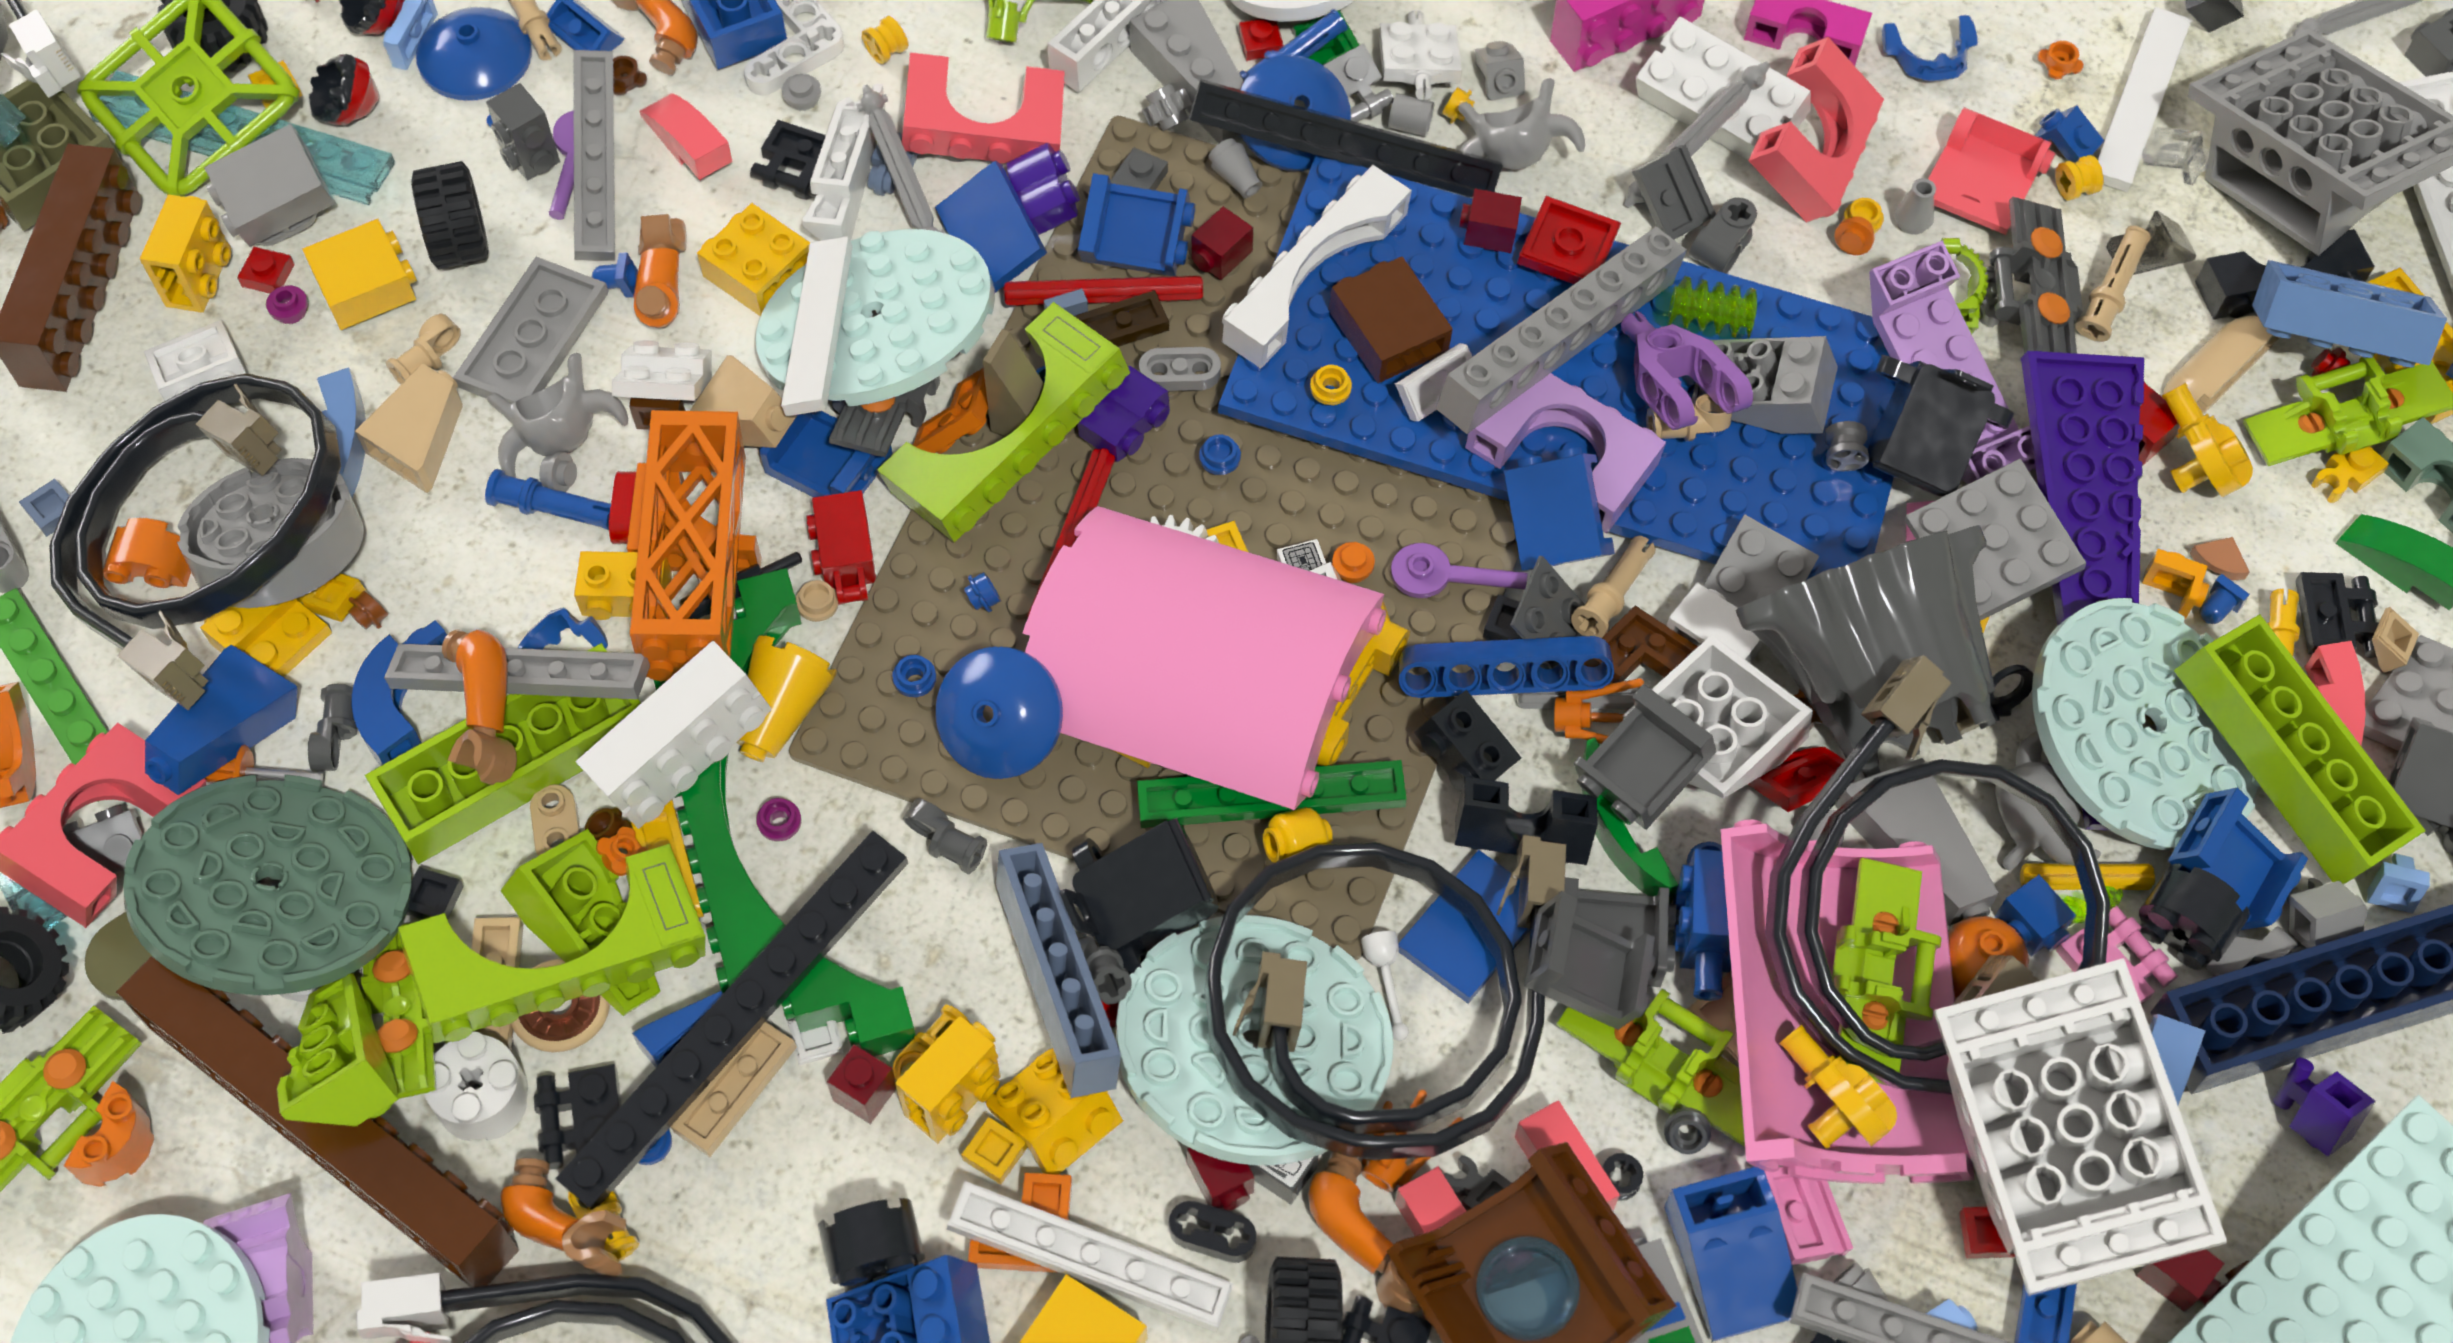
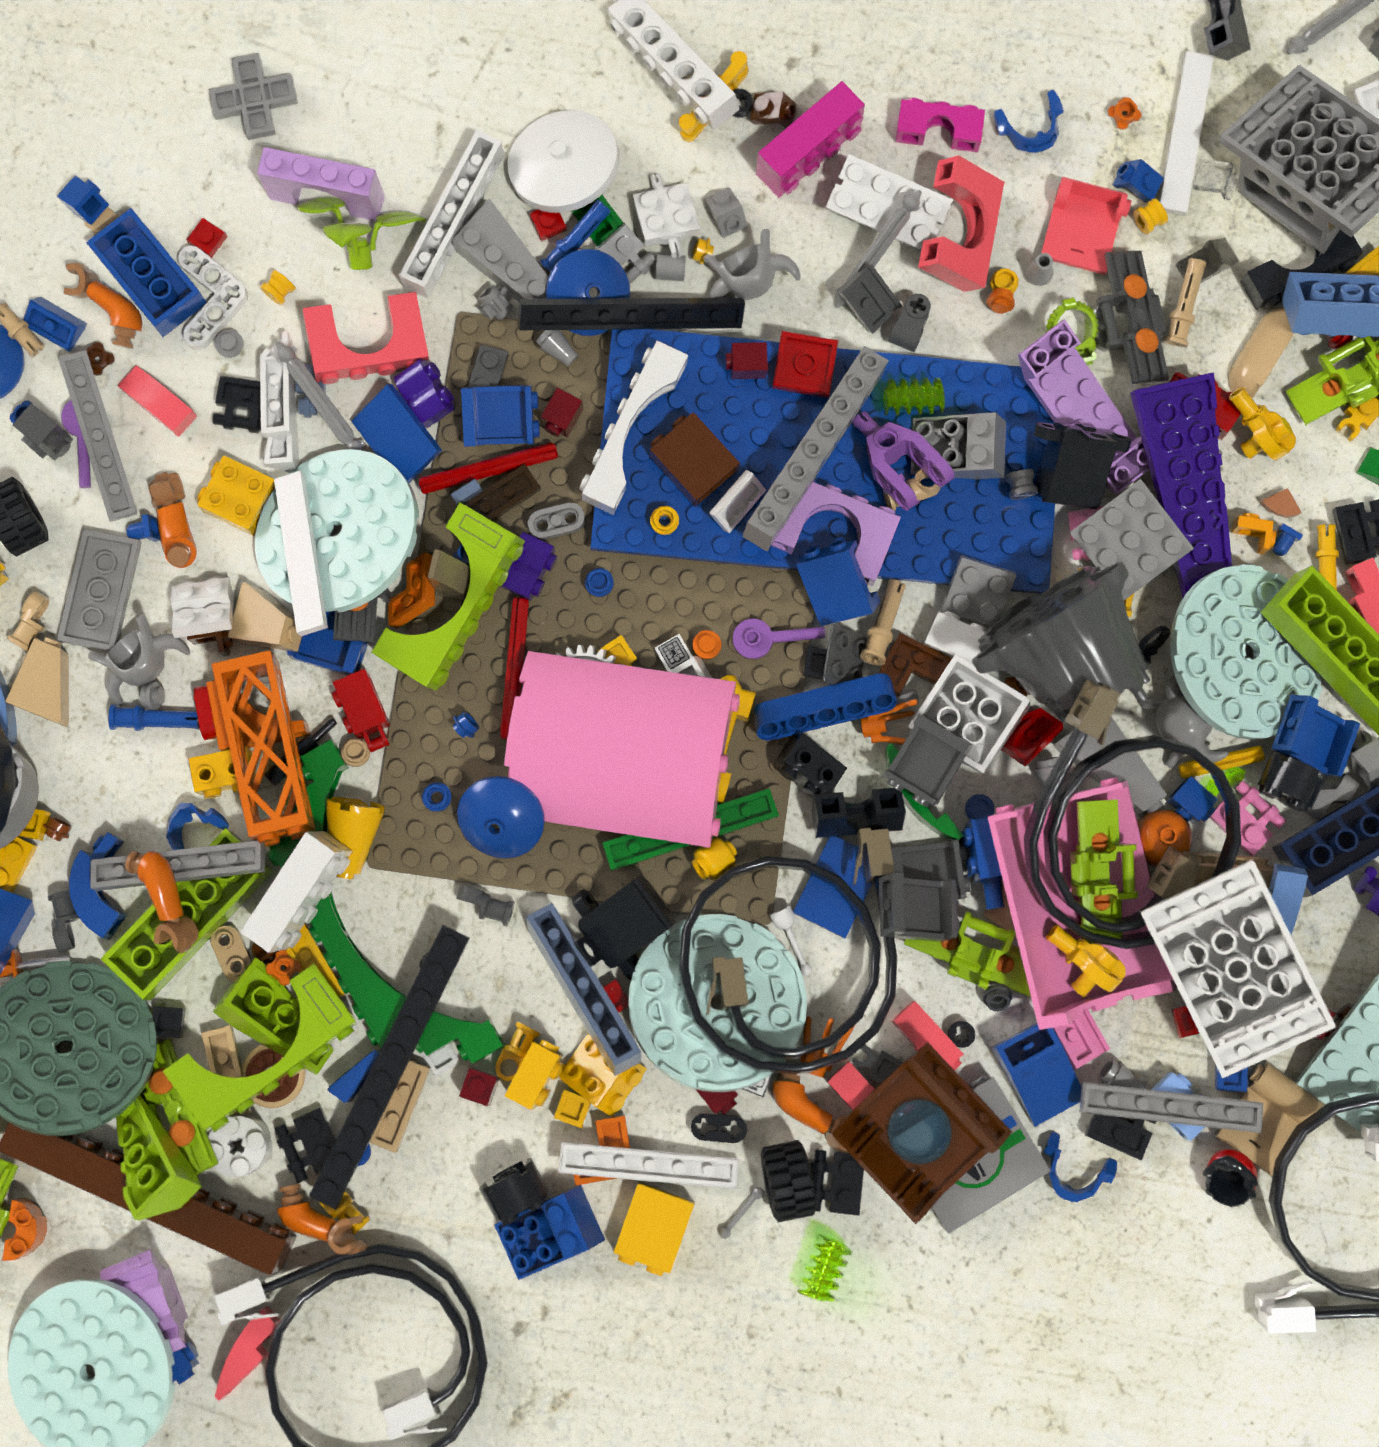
camera: 10 degrees left, 20 degrees up
(774, 809) = (366, 916): magenta plate -> none
(1102, 962) = (613, 981): dark grey connector -> none

